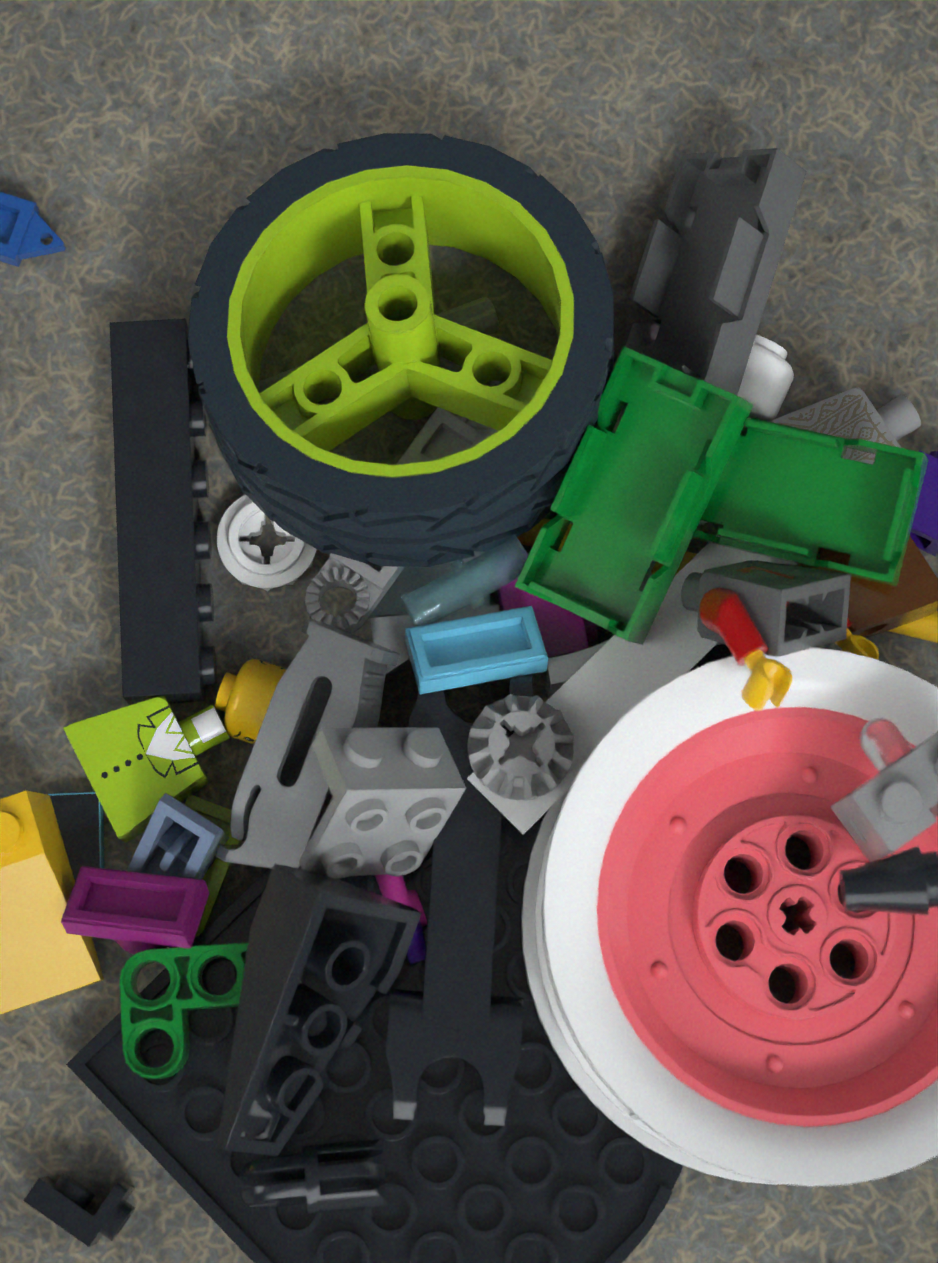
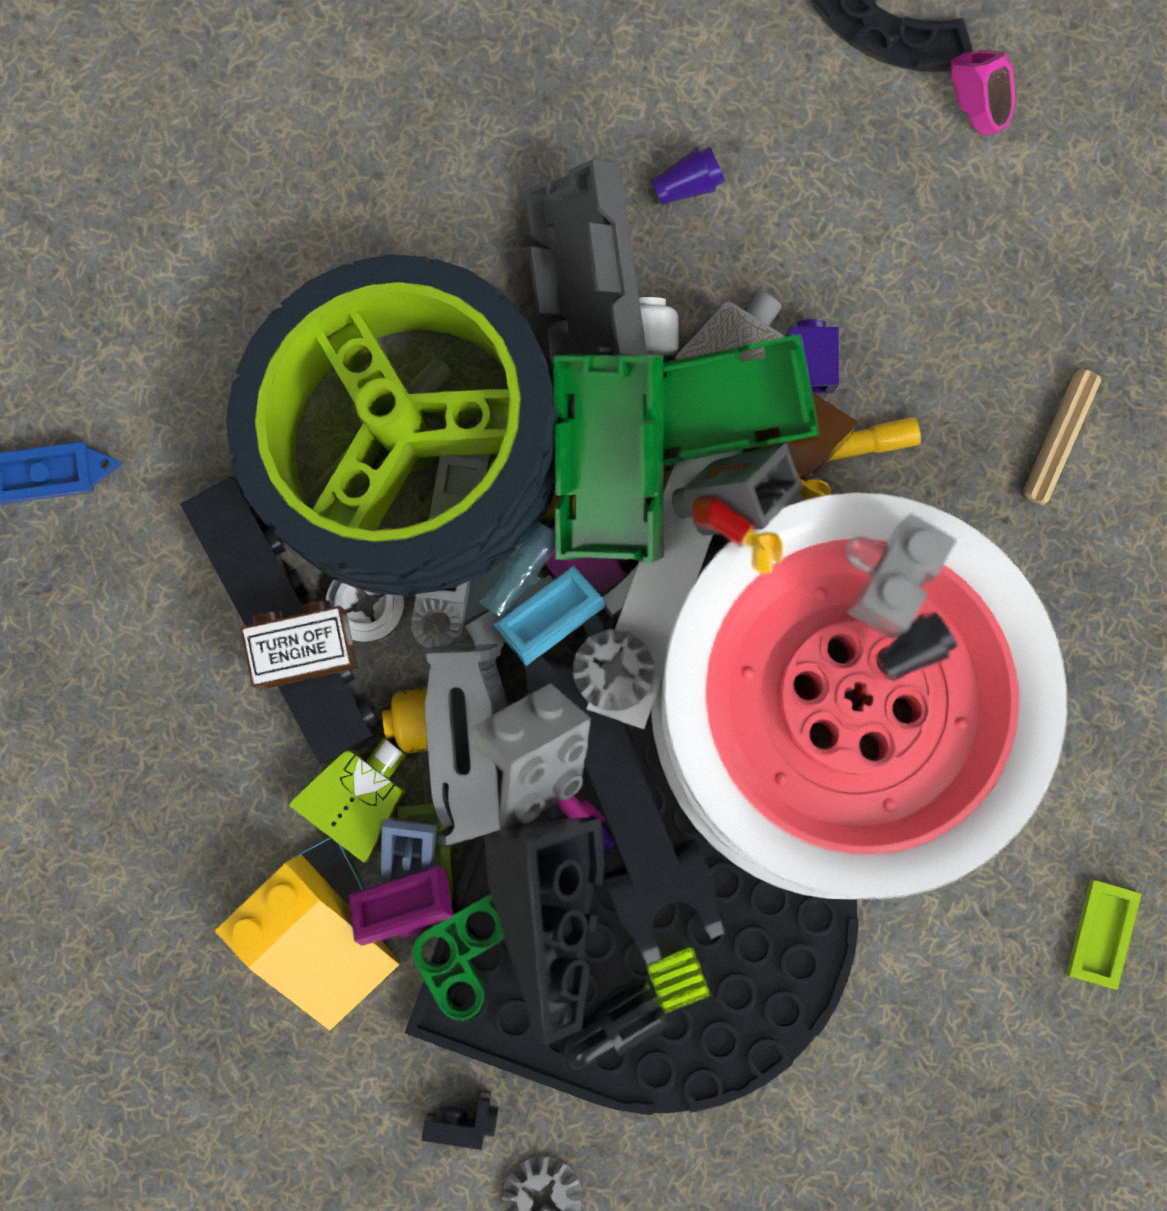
camera: 20 degrees left, 5 degrees up
(166, 546) = (298, 646): none -> brick
(421, 1158) = (678, 980): none -> clear neon green tile
(882, 228) = (689, 177): none -> dark purple cone

